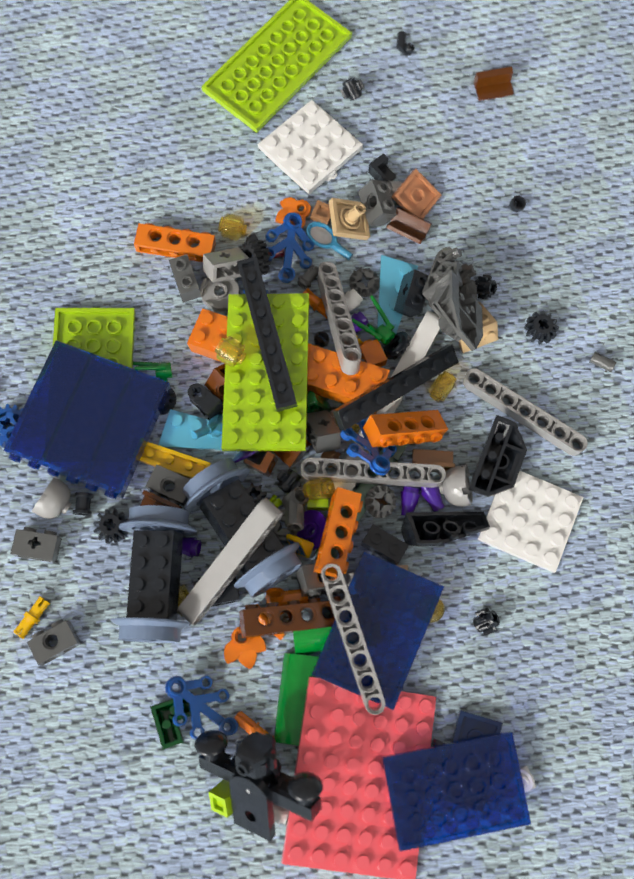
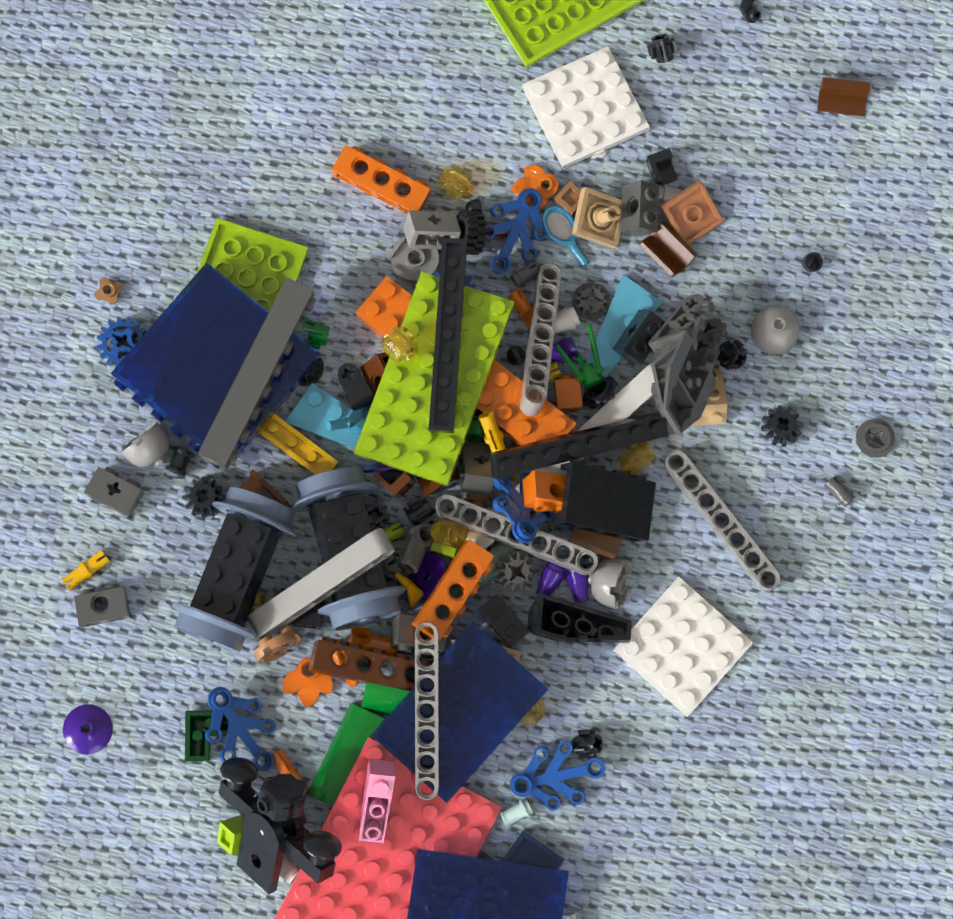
camera: 20 degrees right, 5 degrees up
(83, 746) = (100, 730): none -> dark purple dish
(122, 413) = (256, 374): none -> dark grey brick
(160, 478) = (273, 462): dark grey brick -> none
(185, 278) = (378, 229): dark grey brick -> none
(191, 547) = (285, 550): dark purple cone -> none
(207, 629) = (275, 647): none -> medium nougat plate
(321, 391) = (494, 436): none -> yellow pin
(335, 728) = (376, 800): none -> bright pink slope
(433, 424) = (606, 502): none -> black panel
(449, 697) = (516, 812): none -> light aqua pin
(469, 656) = (553, 776): none -> blue plant
(499, 459) = (669, 567): black wedge -> none
(509, 260) = (775, 330): none -> light grey cylinder
(621, 314) = (875, 426): none -> dark grey gear

